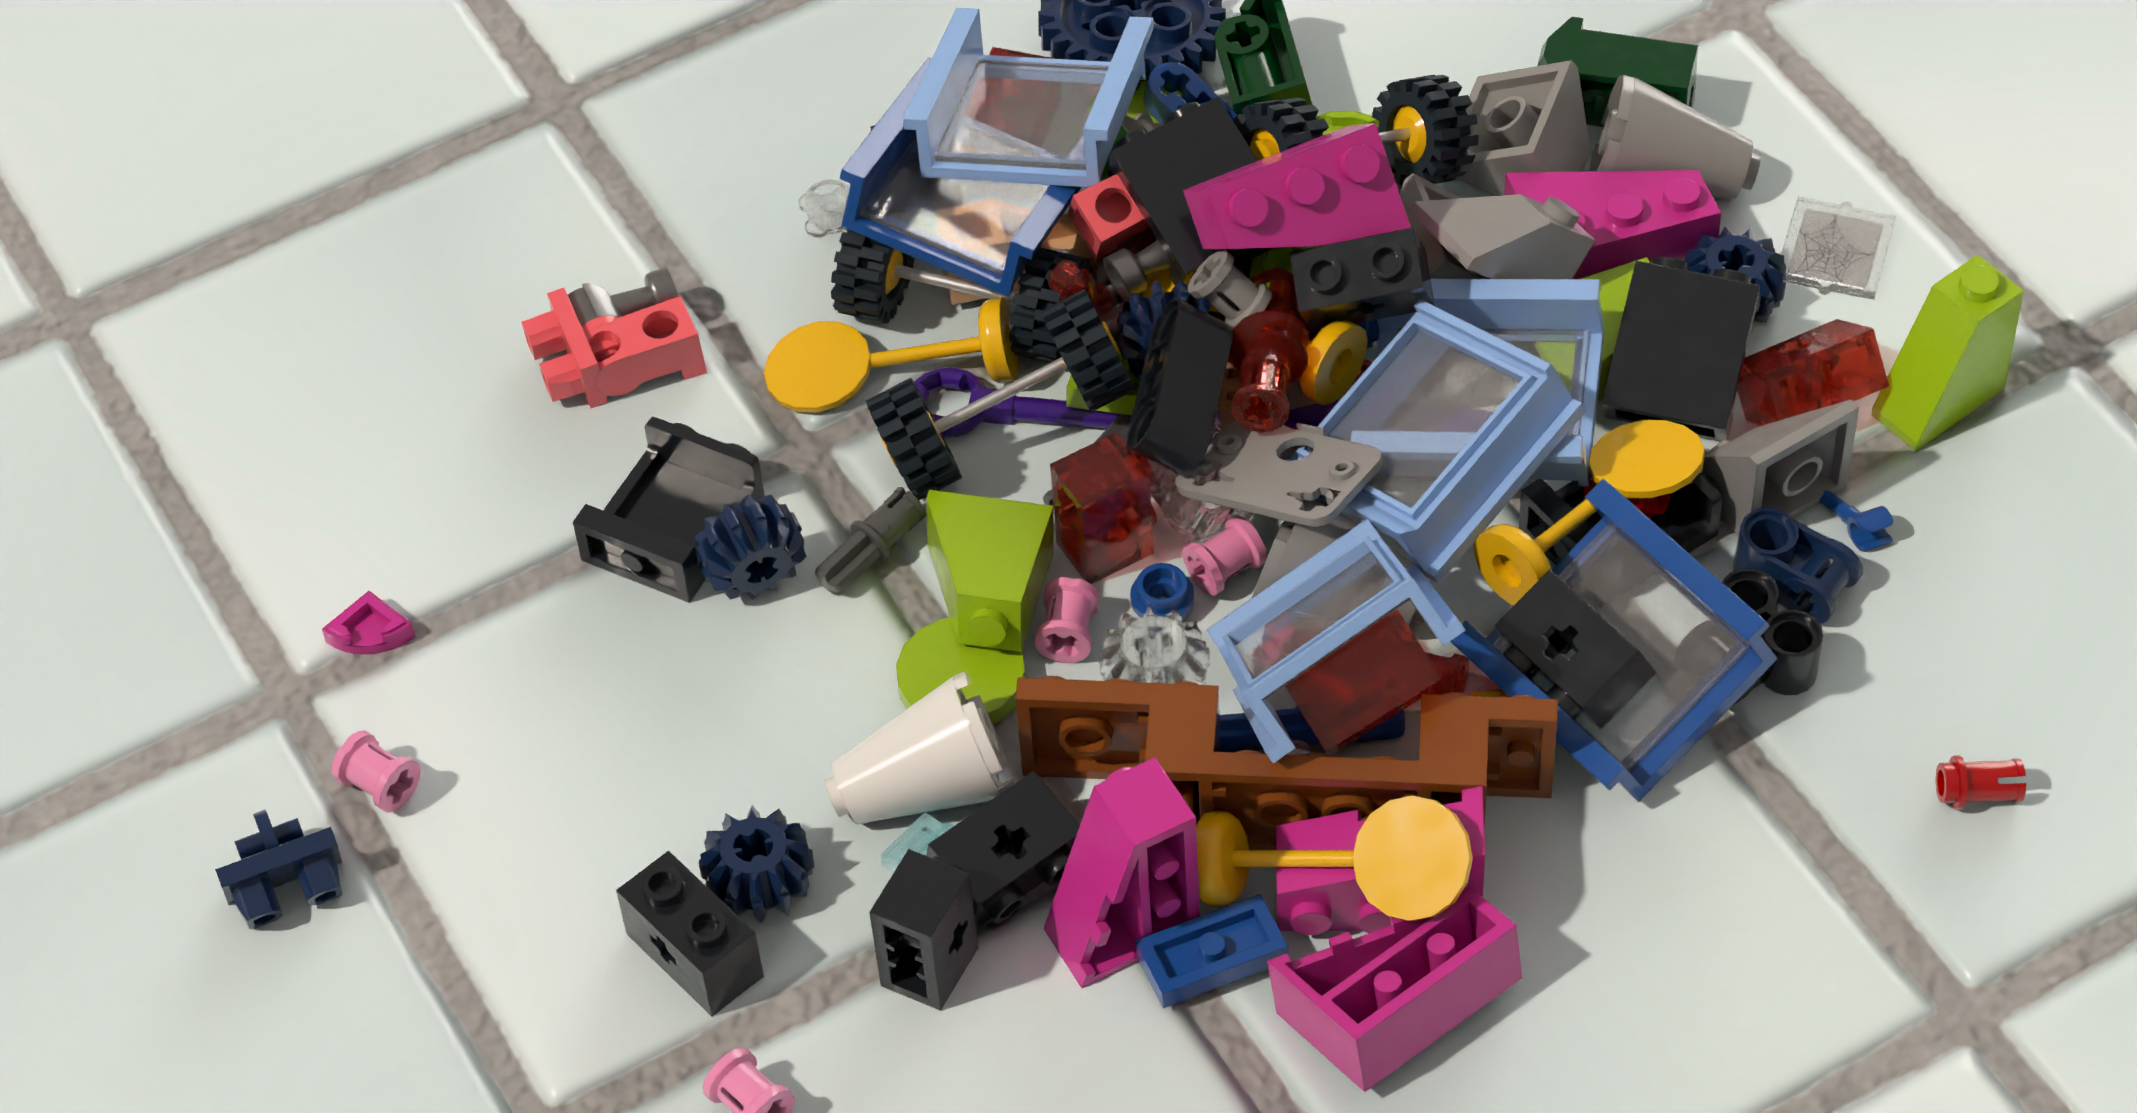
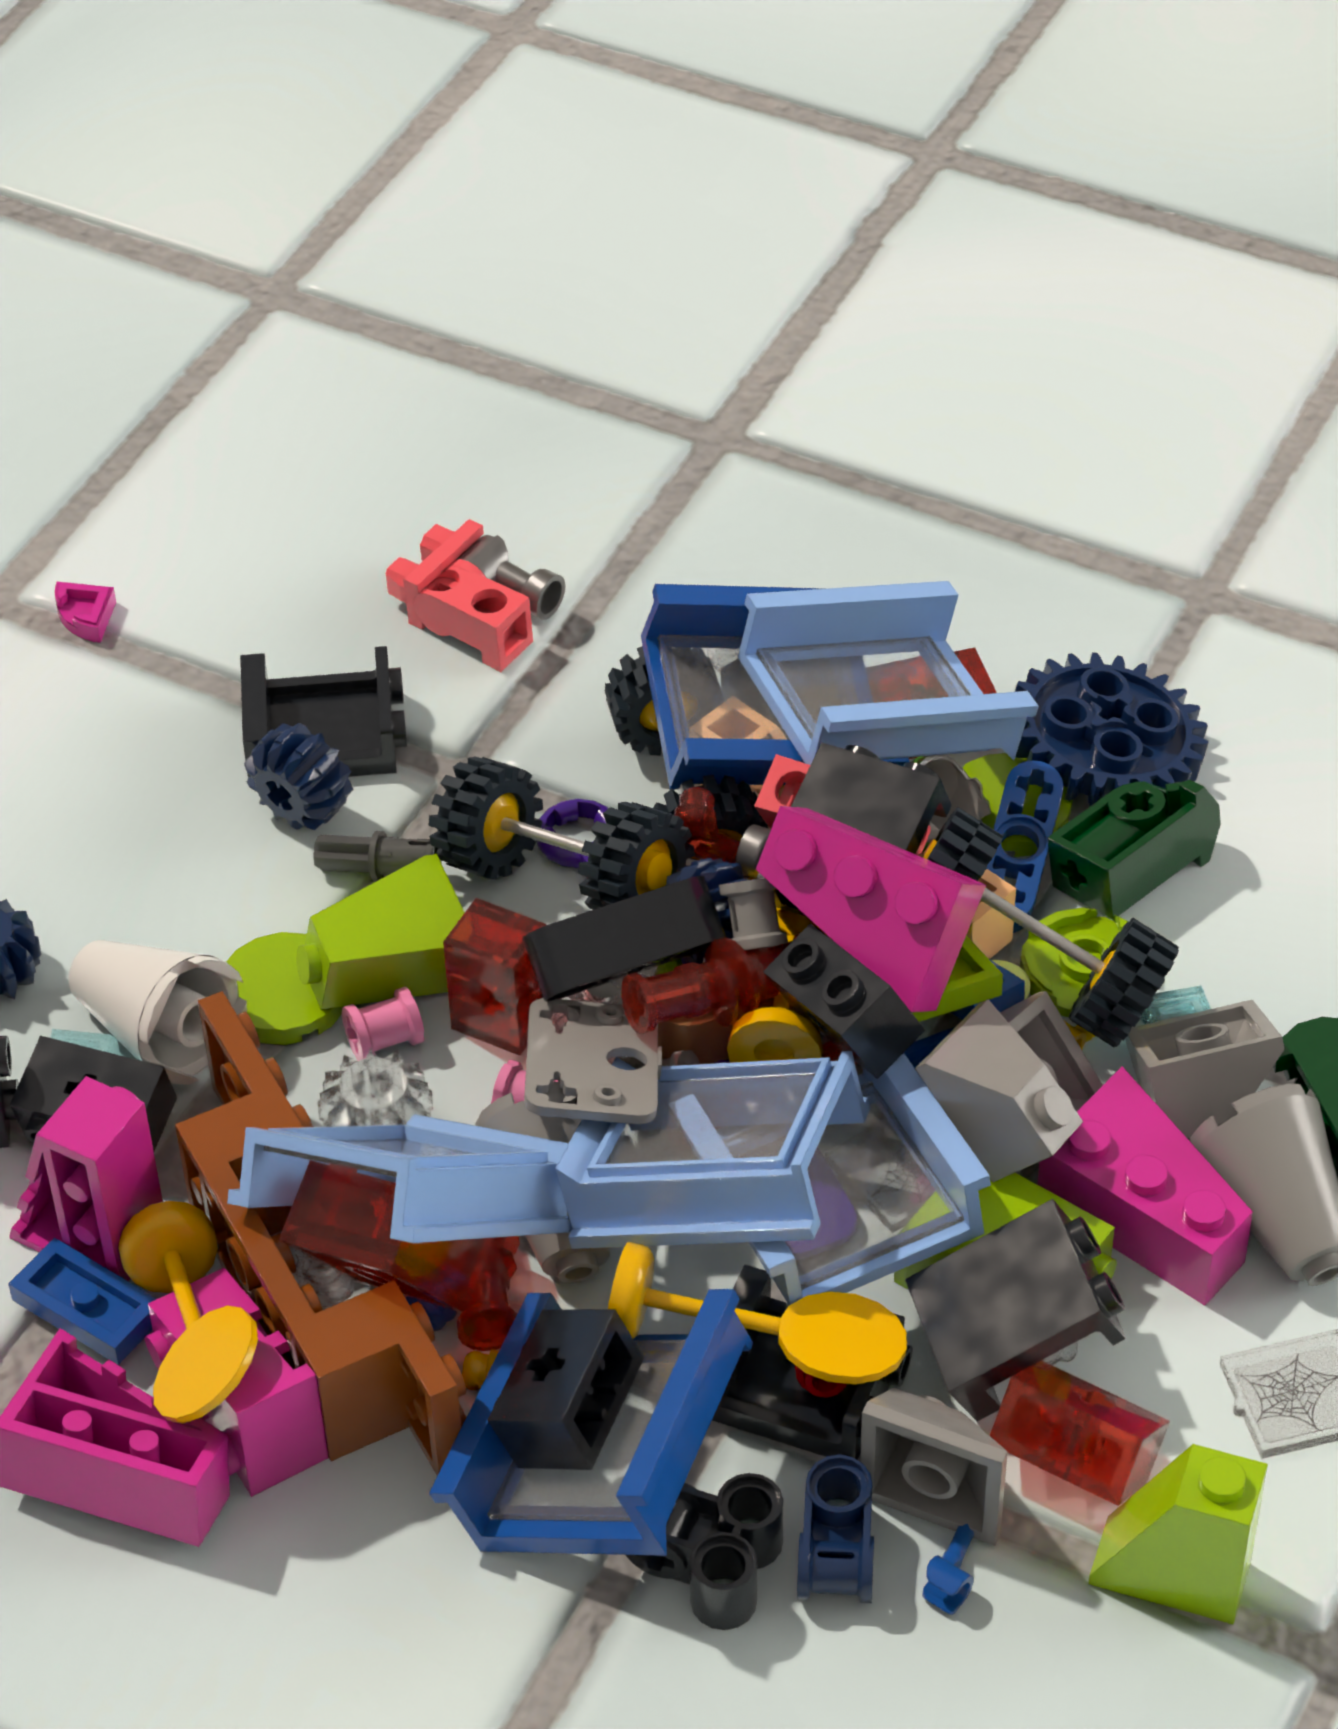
camera: 55 degrees right, 5 degrees down
(831, 361) = (562, 733): yellow piece -> none
(1162, 581) = (463, 1077): blue plate -> none
(1746, 256) = (1172, 1320): dark blue gear -> none

